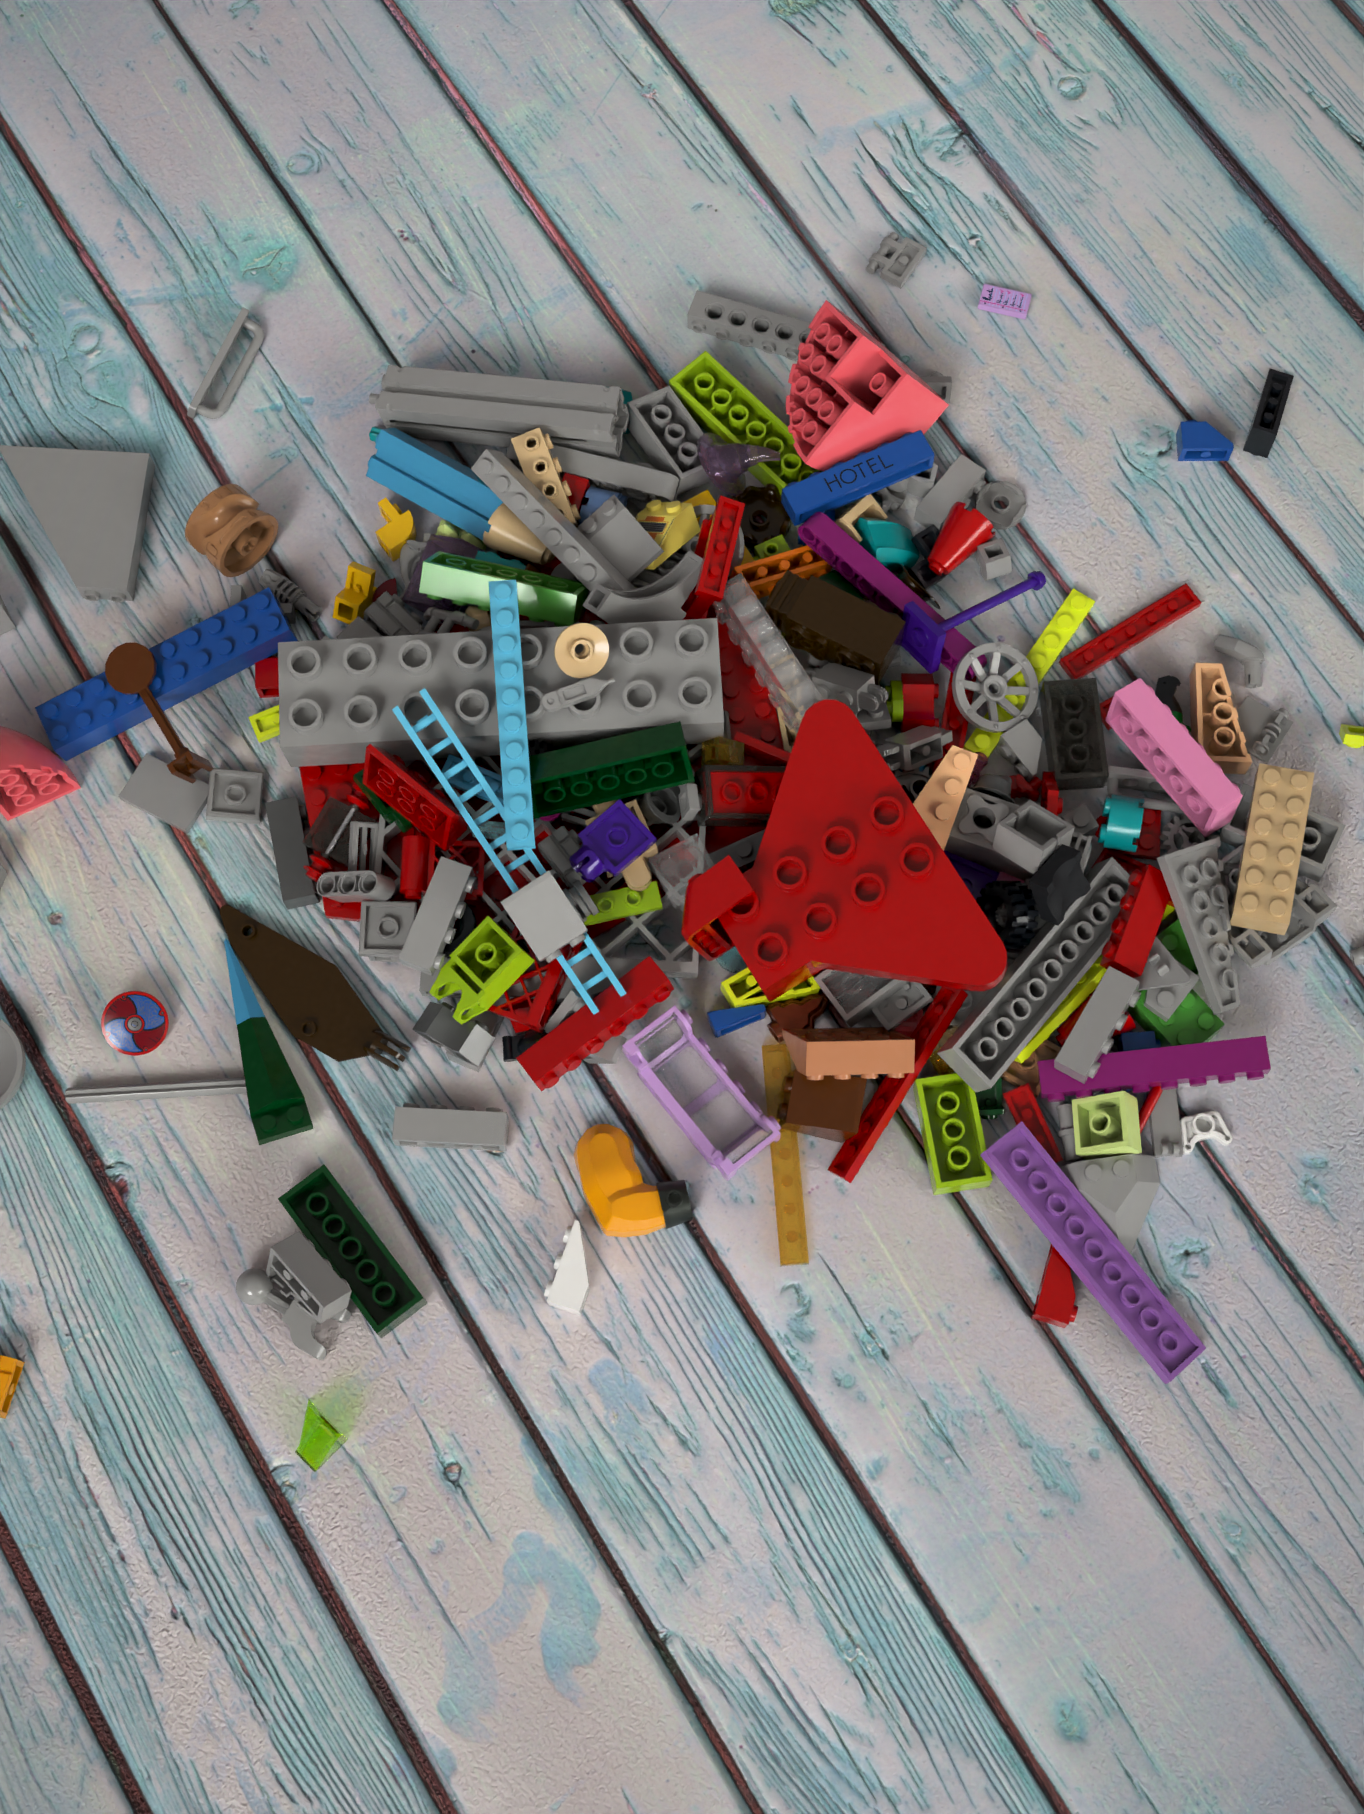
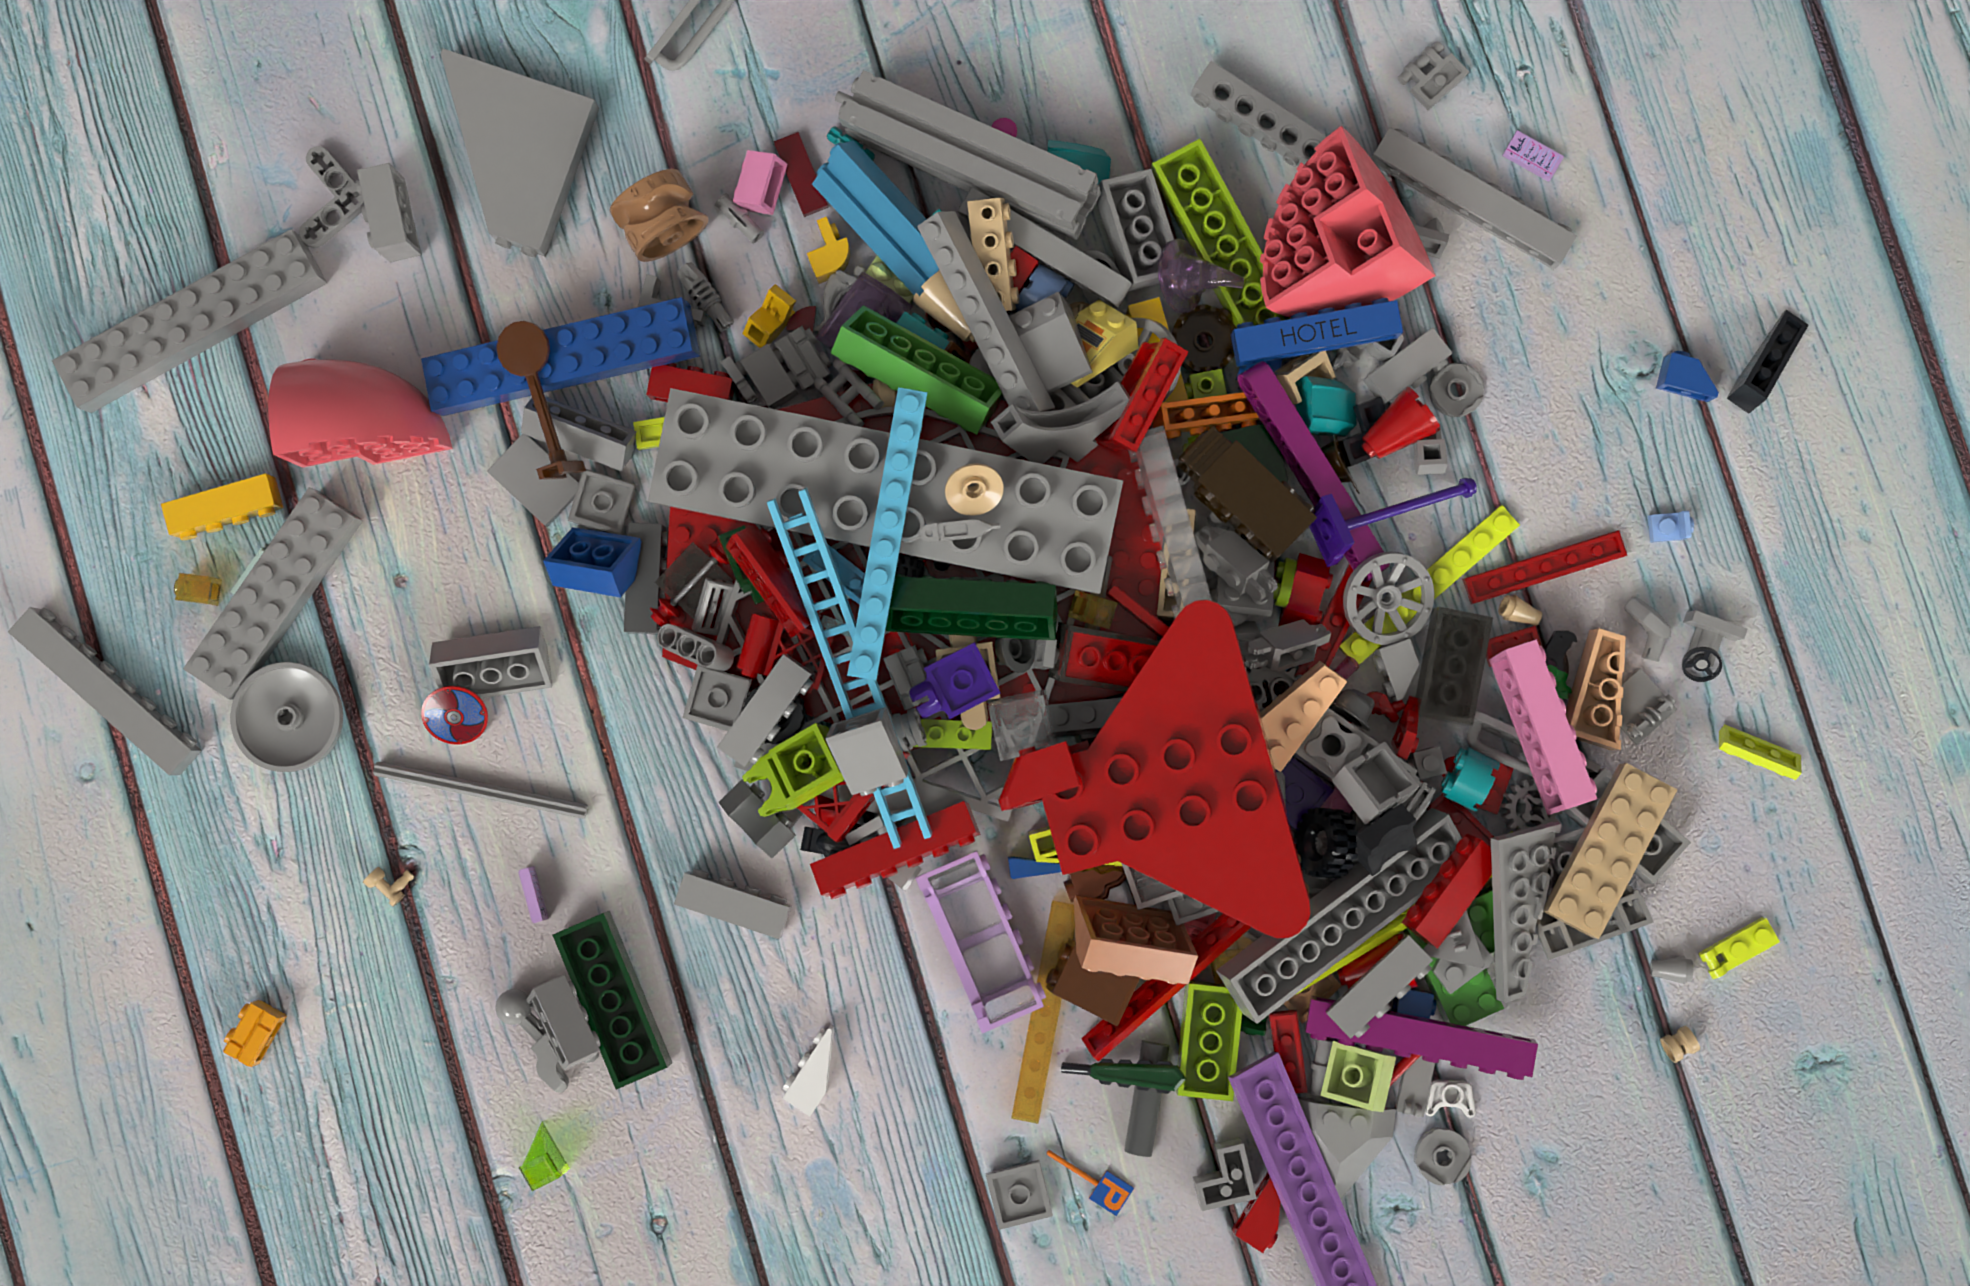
camera: 15 degrees right, 15 degrees up
(109, 1209) = (393, 891): none -> tan piece
(164, 964) = (493, 662): none -> light grey slope
(203, 736) = (583, 433): none -> light grey brick
(240, 846) = (594, 562): none -> blue slope
(249, 1173) = (533, 894): none -> lavender tile
(272, 1090) = (571, 821): dark green plate -> none
(300, 518) = (727, 206): none -> light grey pin
(308, 993) = (629, 729): dark brown wing -> none
(317, 486) = (760, 182): none -> bright pink piece
(353, 474) = (800, 174): none -> dark red tile
(617, 1190) = (877, 1003): light orange piece -> none
(809, 1337) = (1019, 1194): none -> light grey plate
(897, 1180) = (1143, 1074): none -> dark green sword
(899, 1313) = (1109, 1192): none -> piece
(908, 1209) = (1145, 1106): none -> dark grey brick
(964, 346) = (1473, 198): none -> light grey brick
(1016, 1260) = (1232, 1181): none -> light grey brick
(1118, 674) = (1517, 610): none -> tan cone
(1228, 1179) = (1458, 1152): none -> light grey plate
(1231, 569) = (1670, 526): none -> light blue bracket
(1299, 655) = (1706, 643): none -> light grey piece

